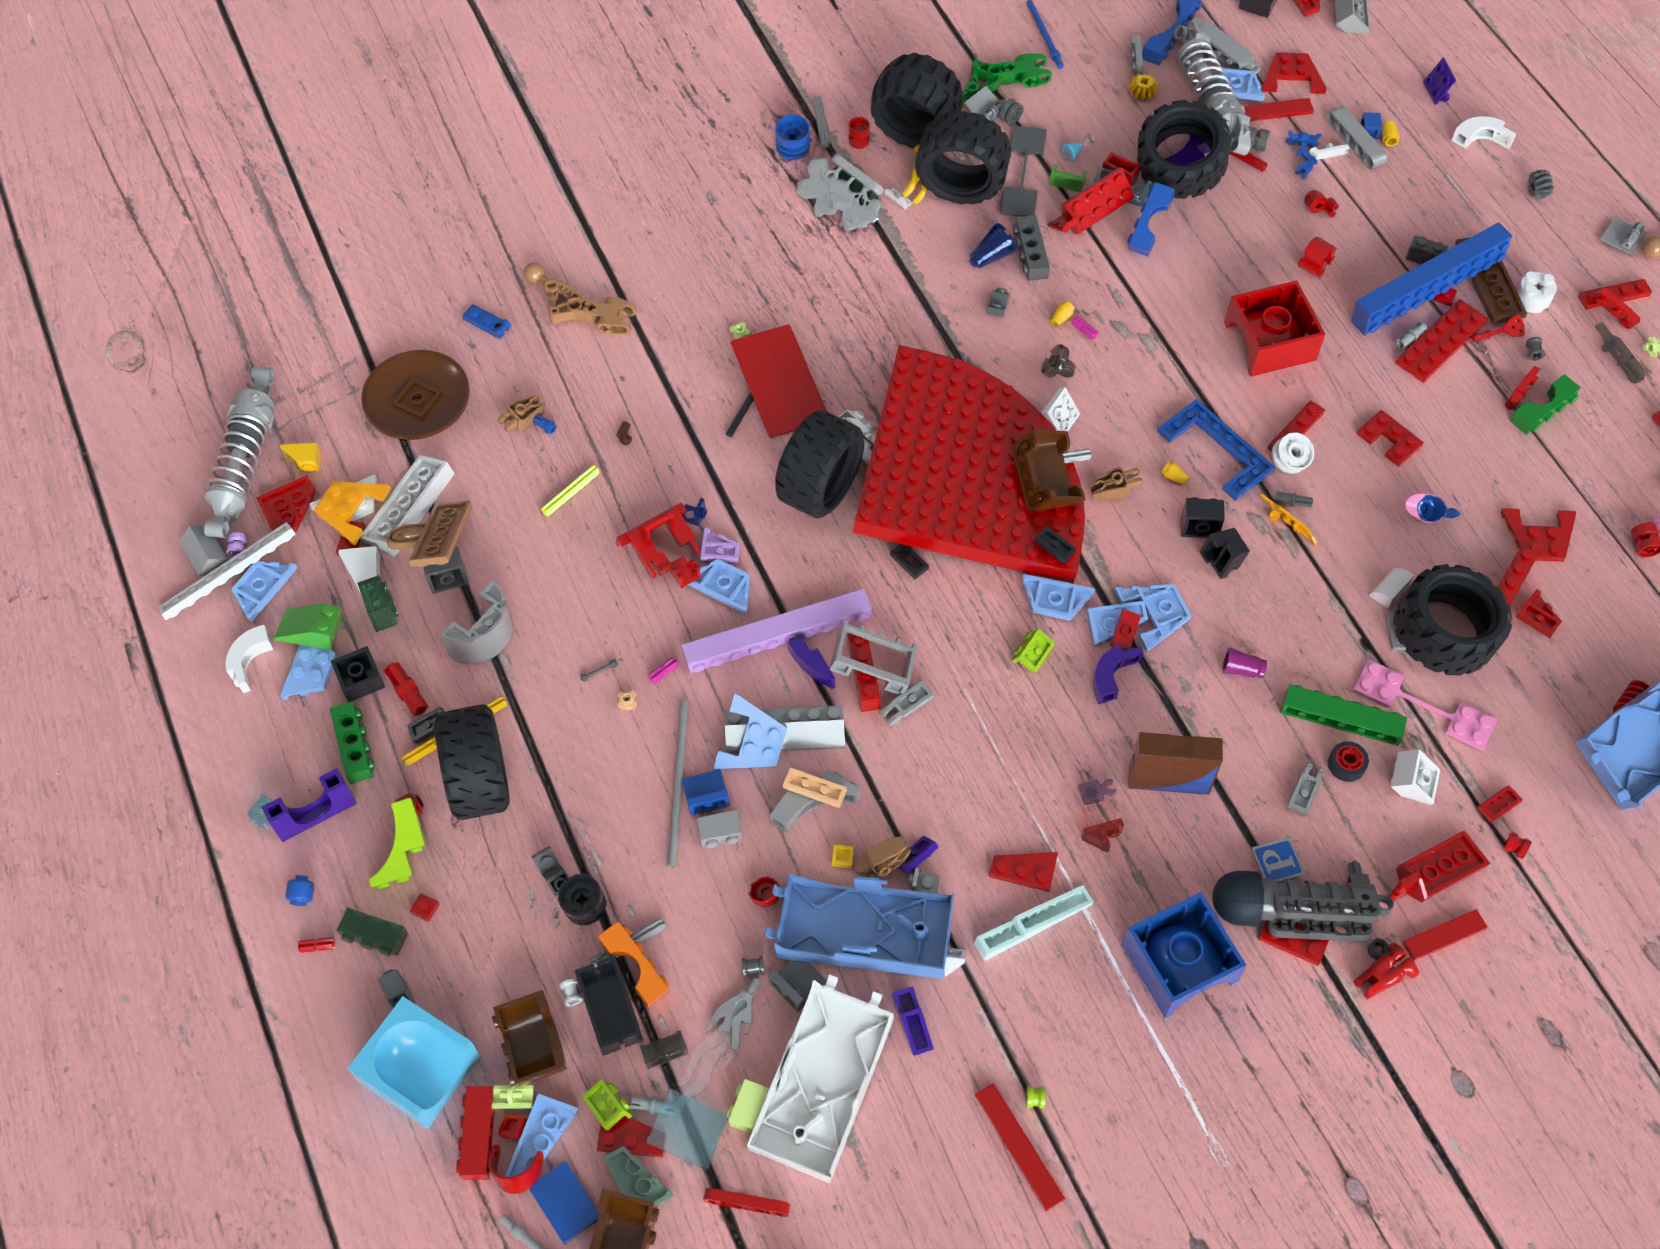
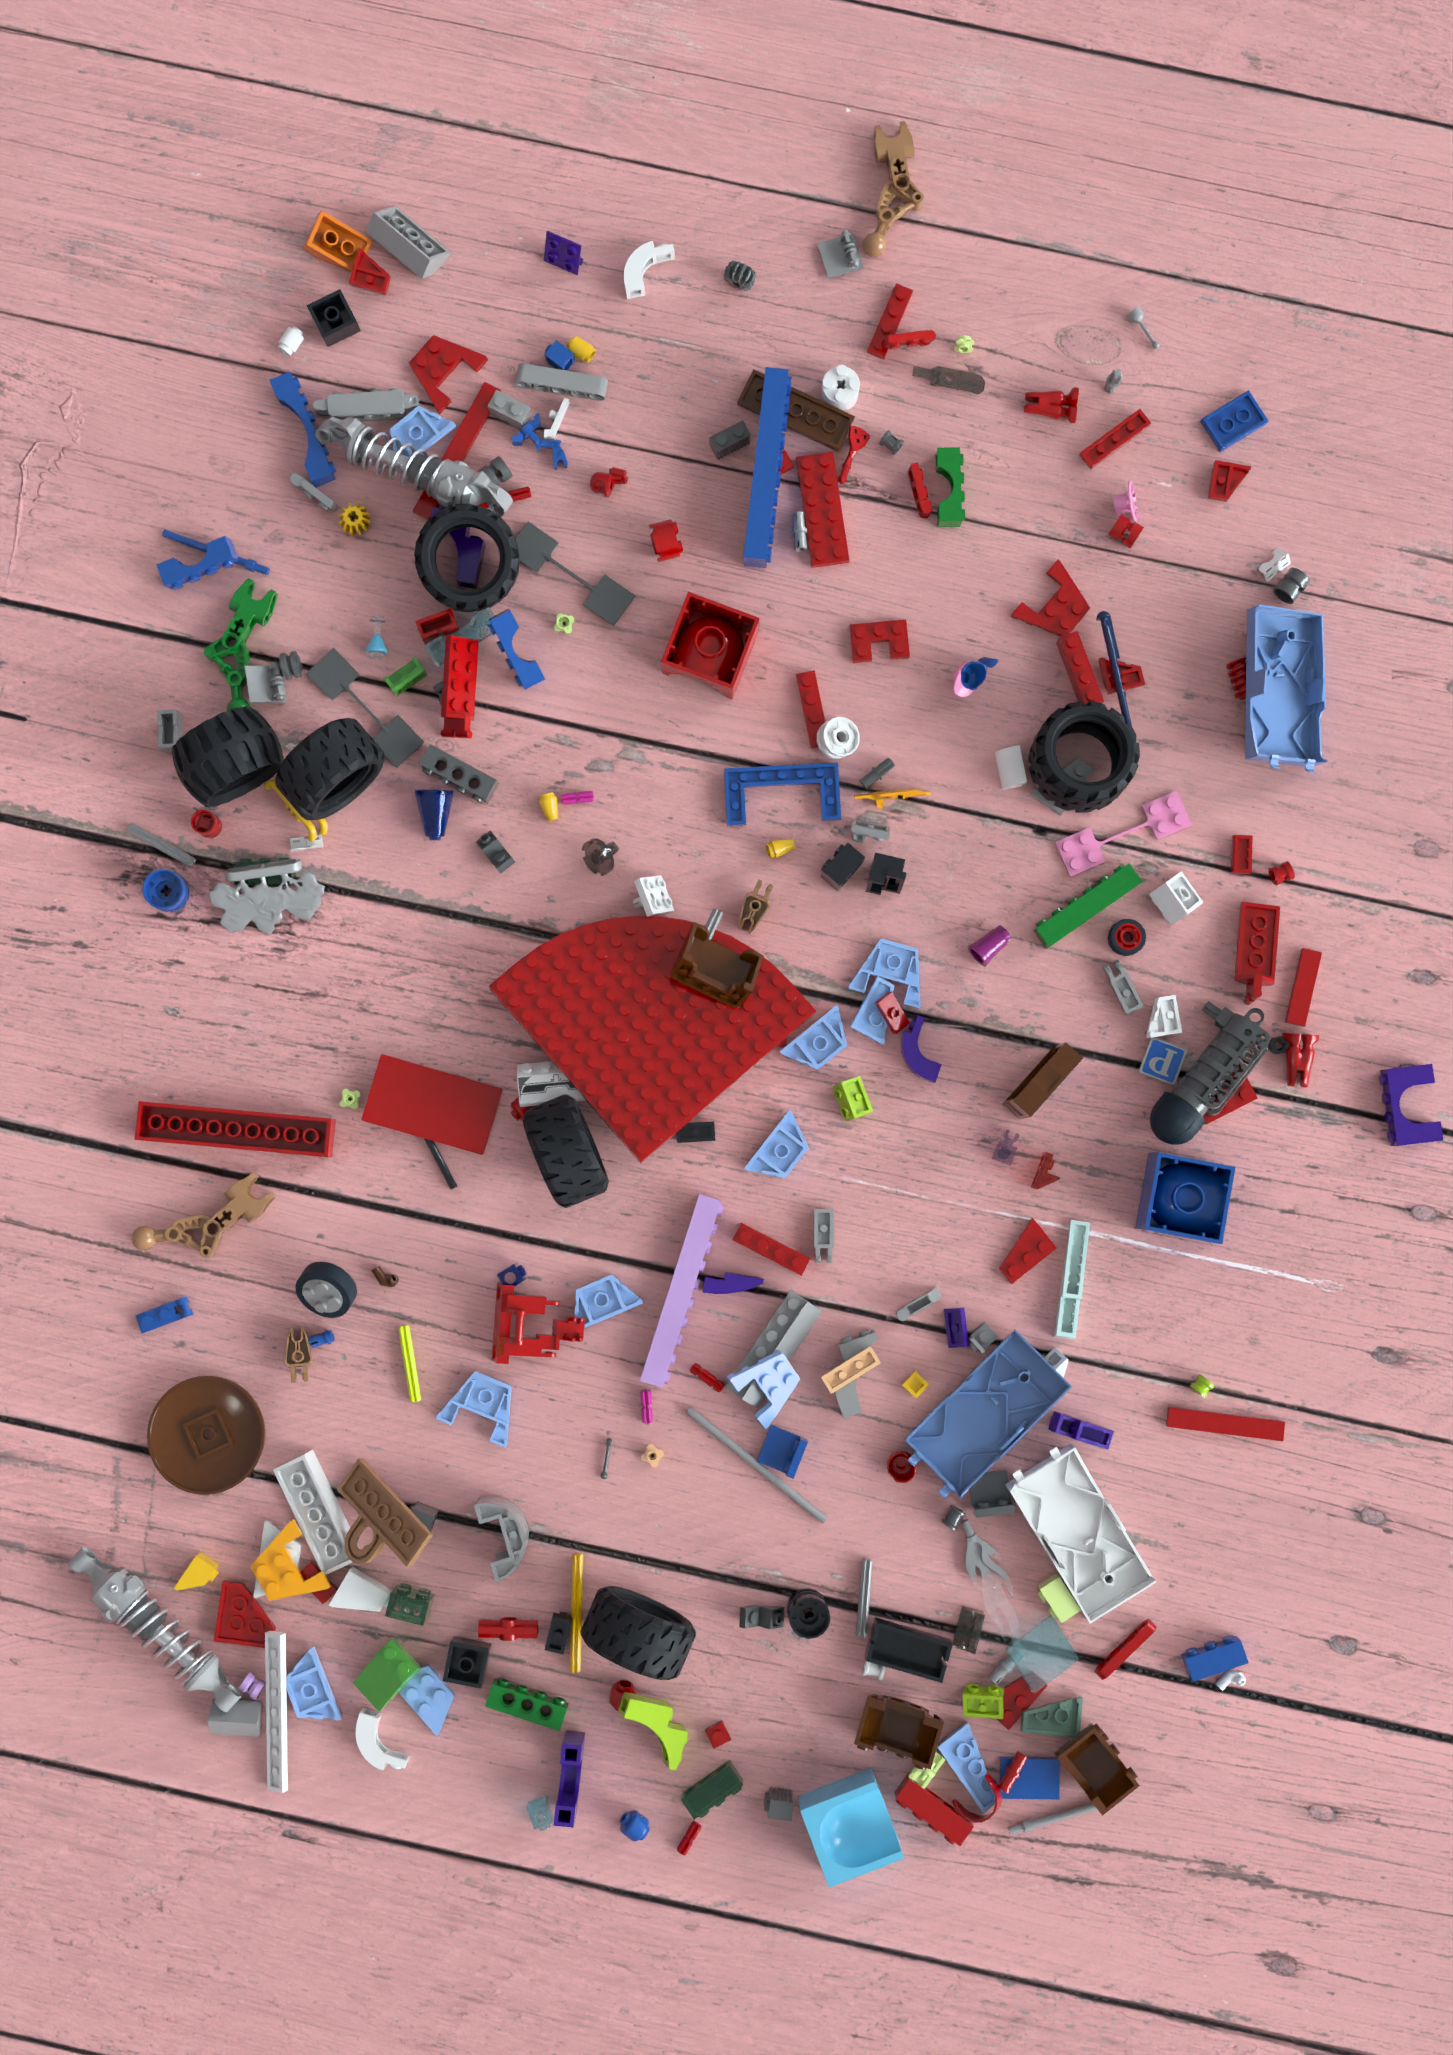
camera: 55 degrees left, 25 degrees up
(512, 1126) = (947, 1781): red plate -> none
(560, 1176) = (1012, 1772): none -> red pin
(583, 556) = (485, 1397): none -> light blue wing
(585, 395) = (326, 1289): none -> black wheel
(618, 942) = (865, 1609): orange arch -> none
(659, 276) = (235, 1129): none -> red brick
(719, 547) = (564, 1280): lavender wing -> none
(719, 829) = (823, 1463): light grey brick -> none
(721, 702) = (707, 1377): none -> red axle
(844, 665) = (809, 1230): light grey hinge -> none
(883, 857) = (943, 1358): medium nougat hinge -> none
(910, 812) = (918, 1304): none -> light grey piece
(947, 627) = (780, 1150): none -> light blue wing
(1043, 31) = (219, 555): none -> blue arch
(1055, 545) = (784, 1013): black plate -> none
(1197, 242) = (564, 618): none -> yellowish green plate
(1237, 256) = (606, 598): none -> dark grey hinge
(1241, 517) = (862, 828): none -> light grey hinge
(1305, 118) = (509, 410): none -> light grey brick
(1313, 837) = (1164, 1017): none -> white wing
(1409, 1111) = (1401, 1130): none -> dark purple arch
(1568, 570) = (1113, 653): none -> dark blue bar

